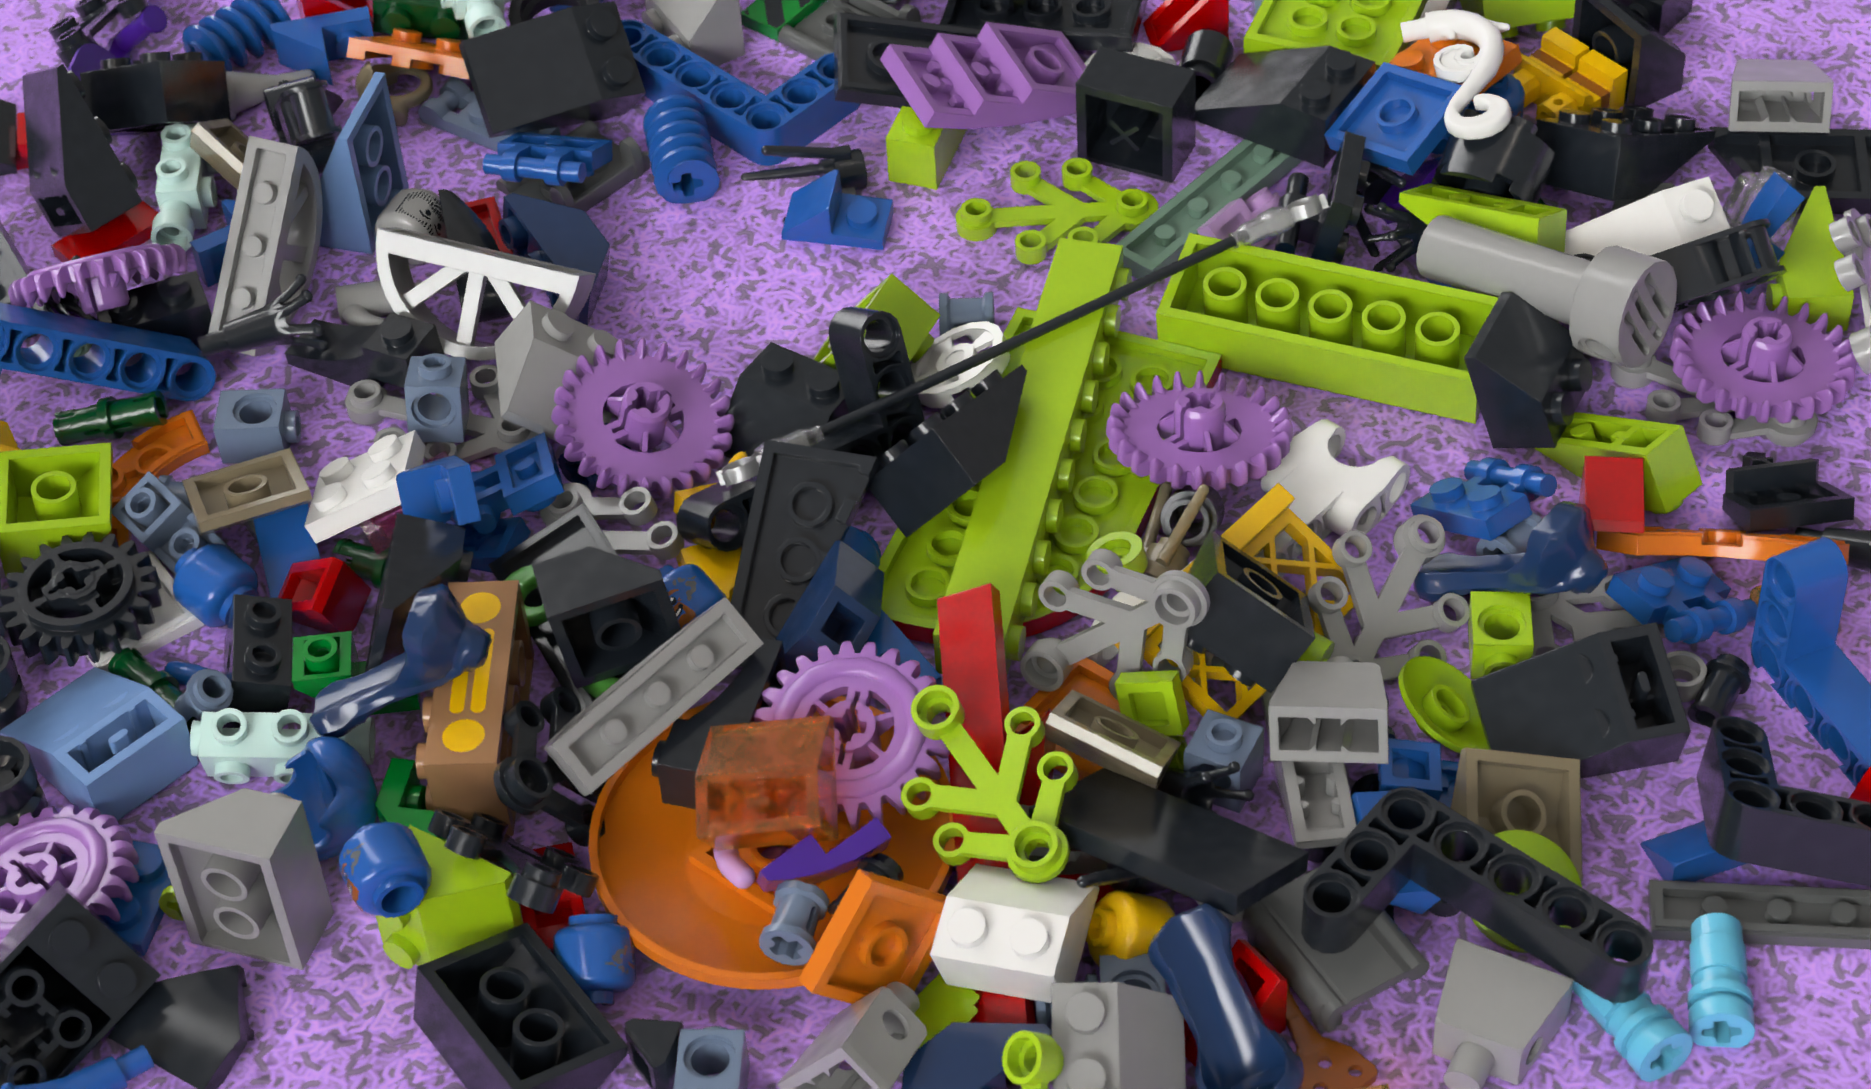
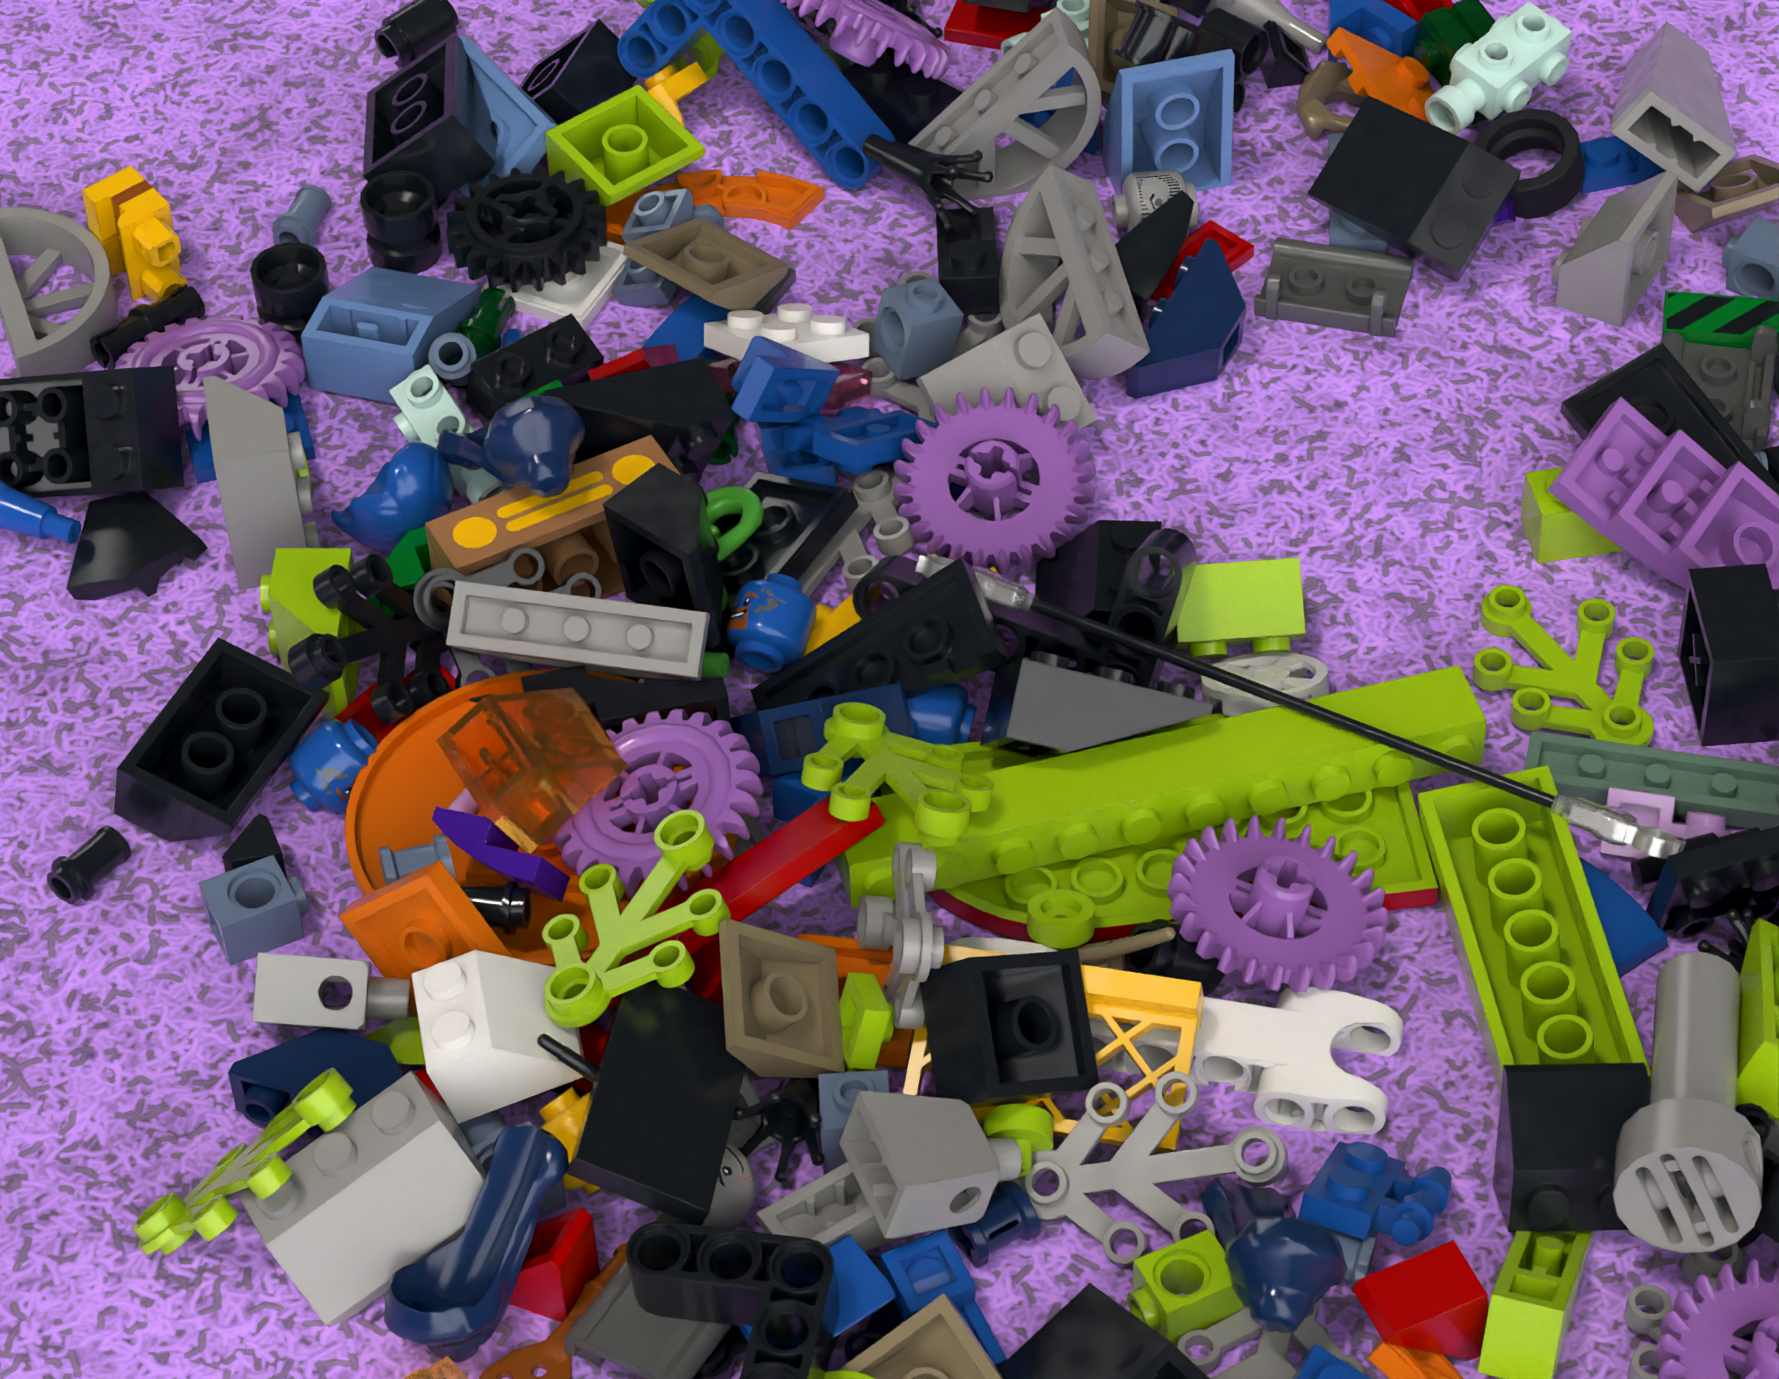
camera: 60 degrees right, 0 degrees up
(110, 418) = (769, 142): dark green pin -> none
(209, 579) = (610, 305): blue head -> none
(254, 424) = (823, 235): sand blue brick -> none
(385, 869) = (270, 548): blue head -> none
(547, 158) = (1305, 242): blue plate -> none
(680, 150) = (1412, 339): blue piece -> none
(734, 110) = (1503, 382): blue beam -> none
(830, 217) = (1421, 506): blue slope -> none
(841, 158) = (1484, 469): black plant -> none
(956, 563) = (861, 732): none -> lime plant
(961, 311) = (1347, 658): sand blue bush -> none
(1442, 703) = (1053, 1243): lime dish -> none

